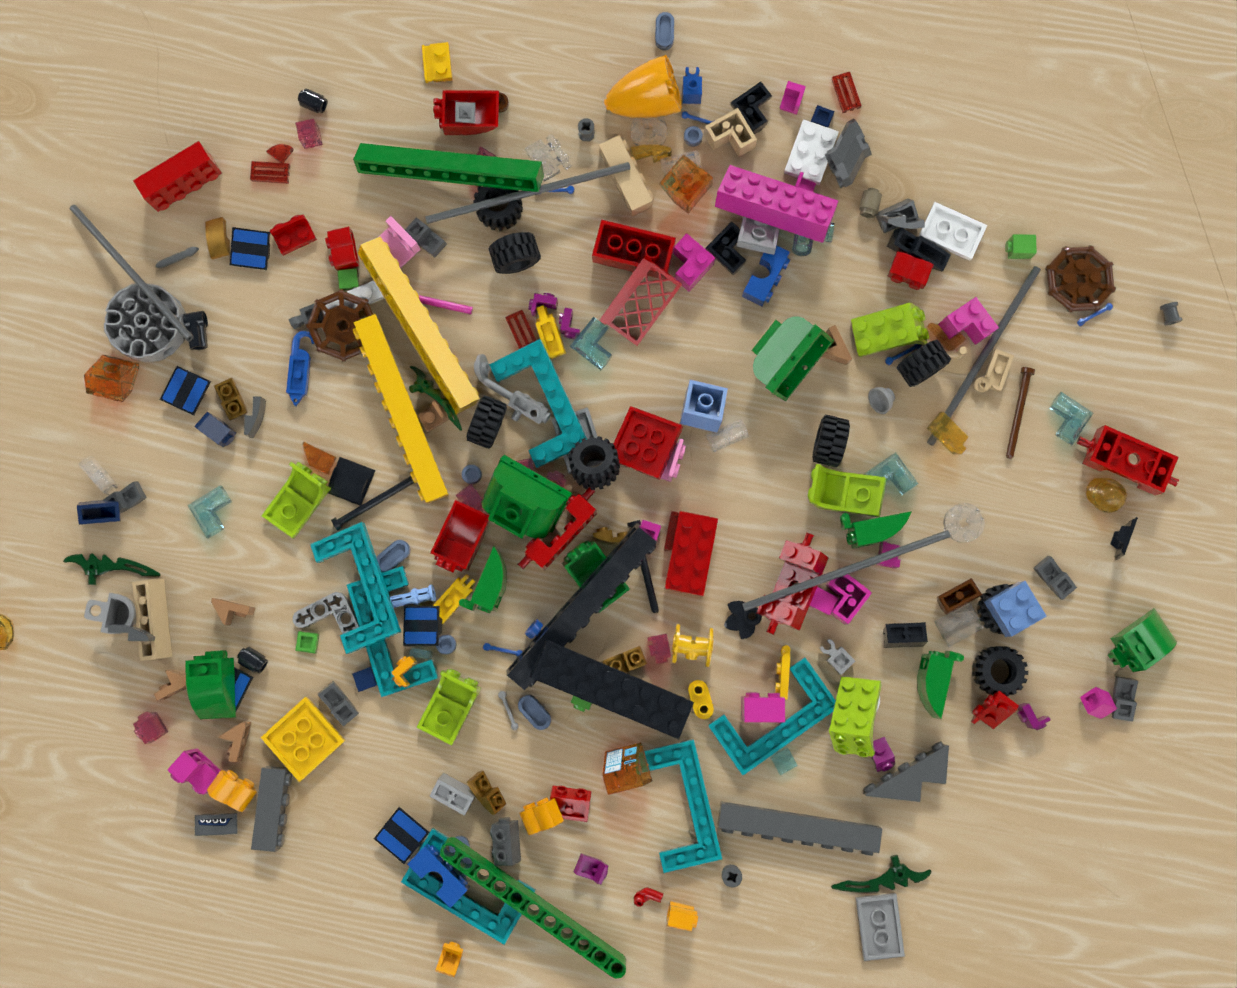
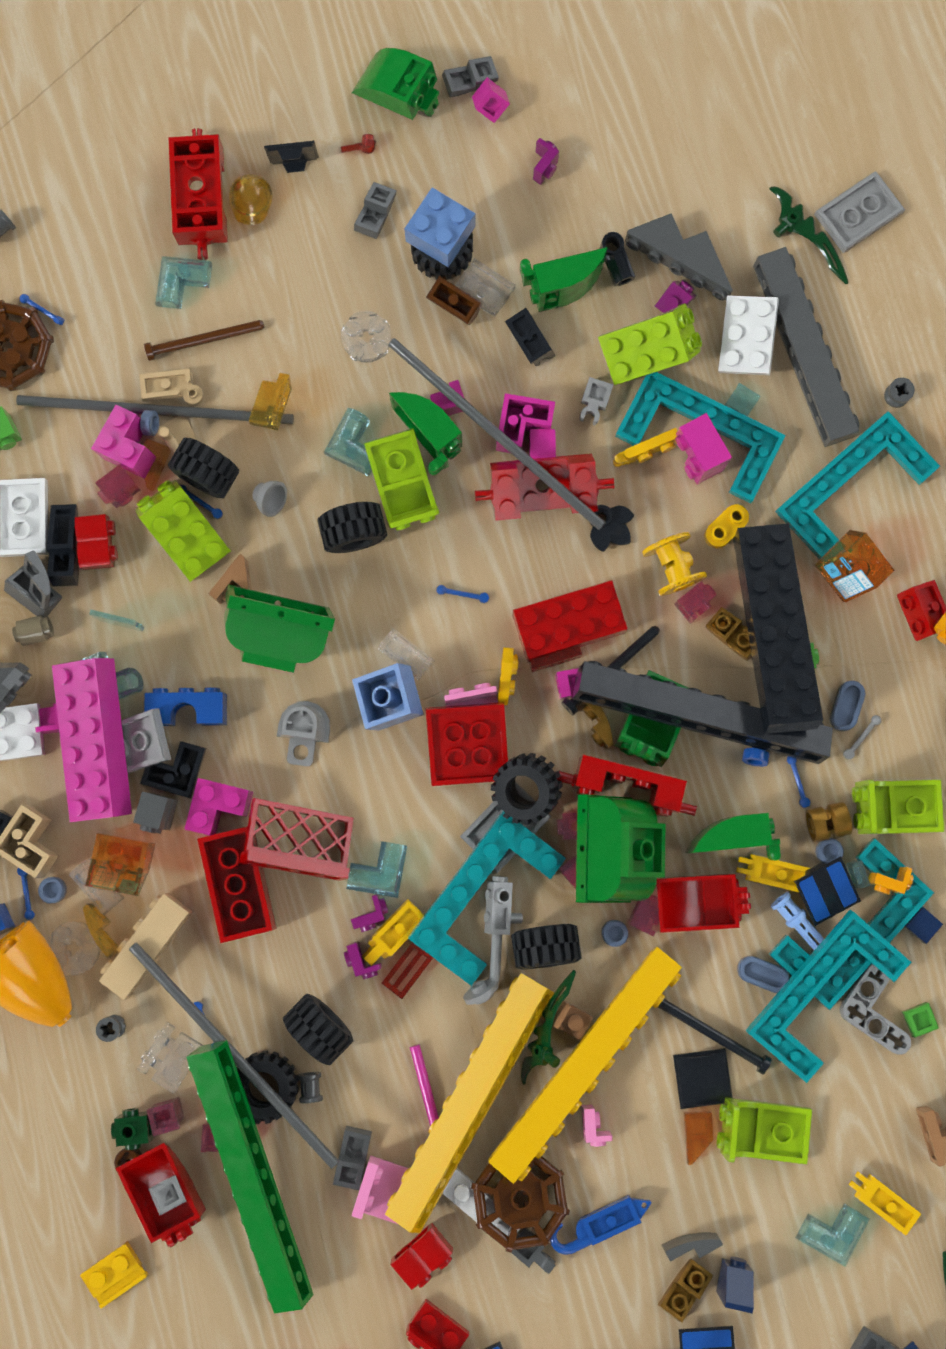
camera: 125 degrees left, 0 degrees up
(210, 553) = (885, 1203): none -> yellow hinge
(348, 279) = (456, 1226): bright green tile -> none
(363, 394) = (590, 1123): none -> bright pink bracket
(465, 660) = (837, 819): none -> pearl gold wheel
(482, 232) = (310, 1087): none -> dark grey bush
(513, 136) = (165, 1116): none -> clear pink brick
(517, 113) = (131, 1129): none -> dark green brick
(682, 495) = (509, 666): none -> yellow hinge
(707, 221) = (155, 812): none -> dark grey piece
(714, 346) = (304, 725): none -> light grey container
(738, 507) = (483, 597): none -> blue hinge
(828, 790) = (748, 335): none -> white plate
(847, 259) = (116, 620): none -> clear light blue piece
(930, 727) = (617, 261): none -> black piece
(940, 302) = (117, 487): none -> clear pink brick
(975, 345) = (149, 423): none -> sand blue tile
(994, 710) = (561, 201): red bracket -> none
(1015, 665) = (517, 198): black tyre -> none
(1107, 597) = (367, 145): none -> clear red hand

